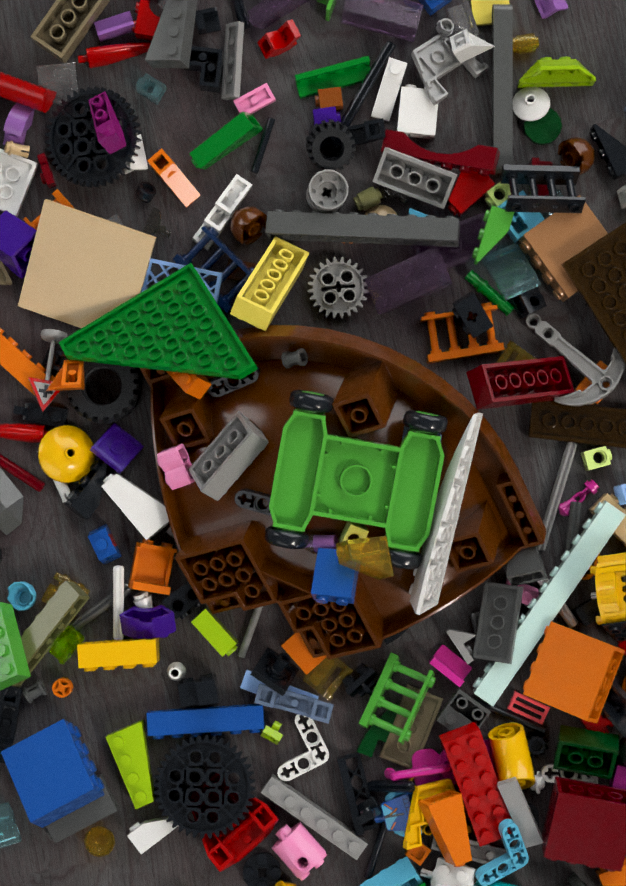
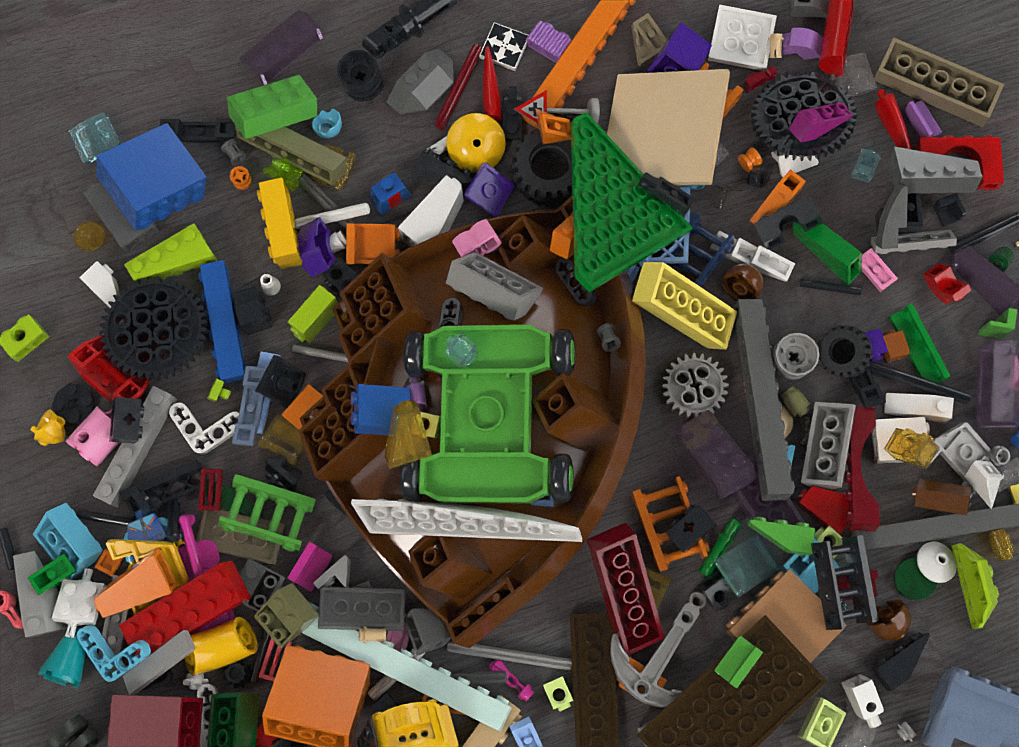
camera: 90 degrees right, 10 degrees down
(127, 196) = (750, 159): none -> orange wheel
(154, 280) = (666, 192): none -> black hinge
(200, 189) = (801, 212): none -> black arch
(214, 75) = (892, 218): none -> dark grey slope
(283, 820) = (119, 430): none -> black brick
(295, 494) = (461, 350): none -> clear light blue head
(373, 749) = (210, 507): none -> dark red tile
(439, 98) = (912, 447): none -> clear yellow brick
(476, 86) = (942, 496): none -> reddish brown brick
(495, 691) = (286, 615): none -> olive slope
(524, 616) = (372, 634): none -> tan pin
(600, 294) = (738, 661): none -> bright green panel

